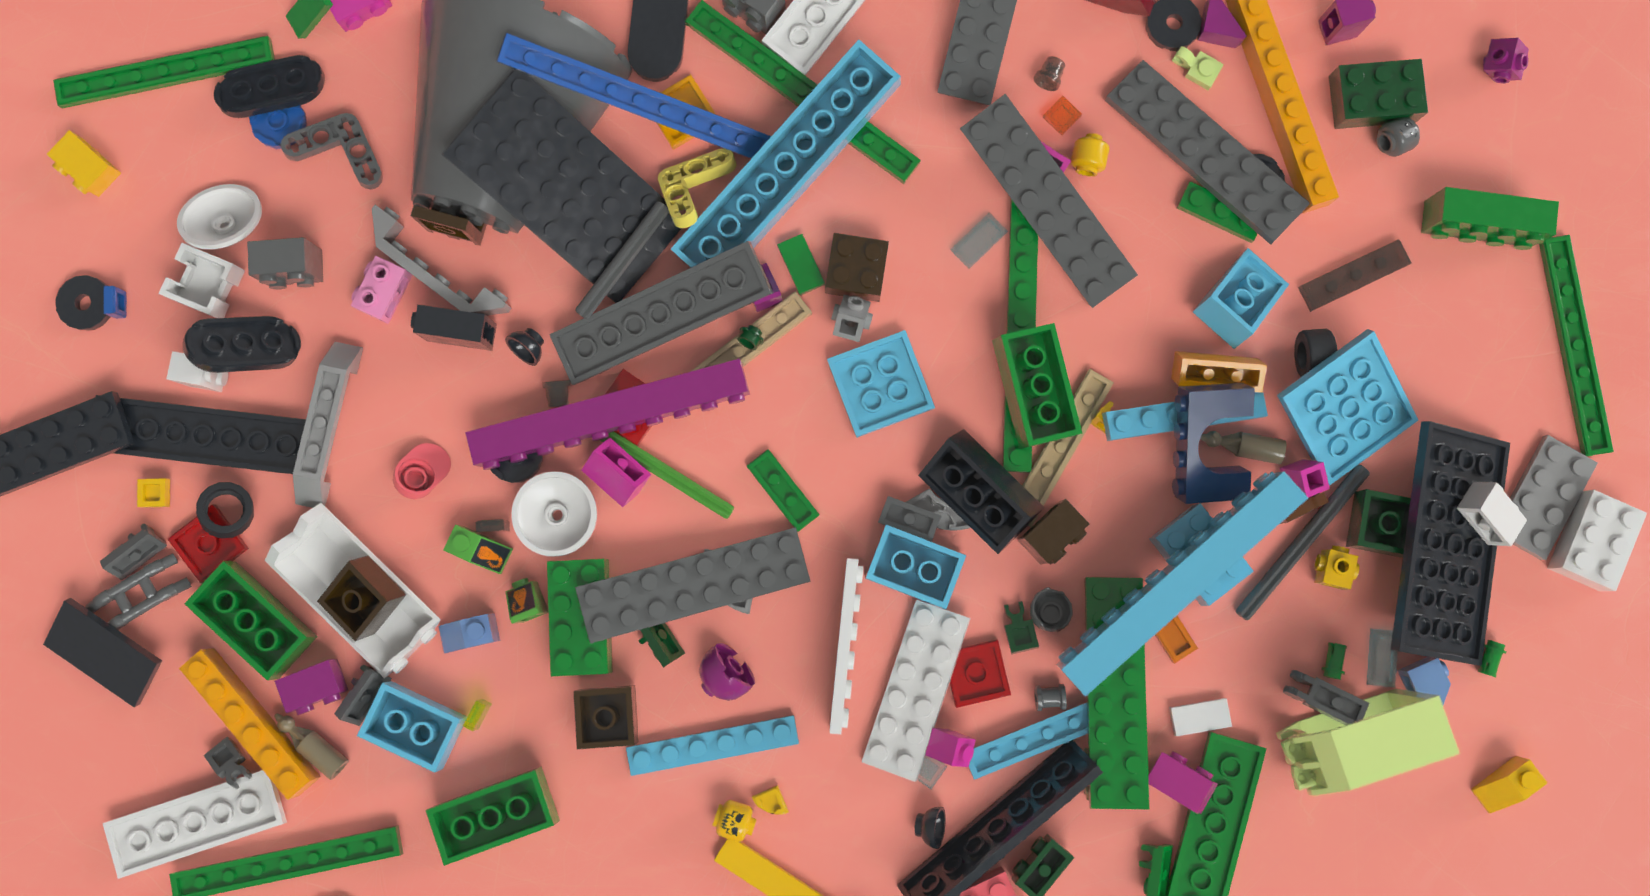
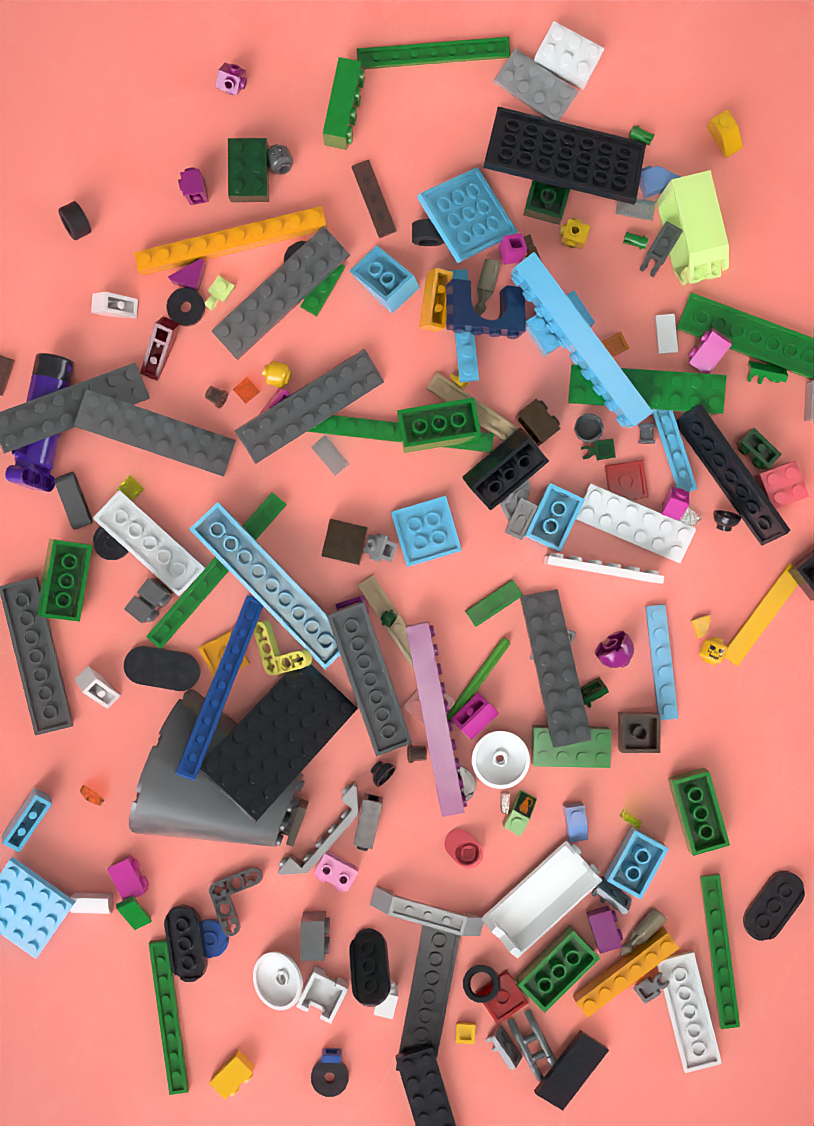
camera: 90 degrees left, 5 degrees up
(361, 598) = (548, 893): dark brown brick -> none
(525, 601) = (558, 782): slope -> none
(622, 260) = (330, 703): dark grey axle -> none
(801, 264) = (338, 580): green tile -> none
(1302, 542) = (578, 277): dark grey axle -> none
(1492, 513) = (547, 125): white brick -> none

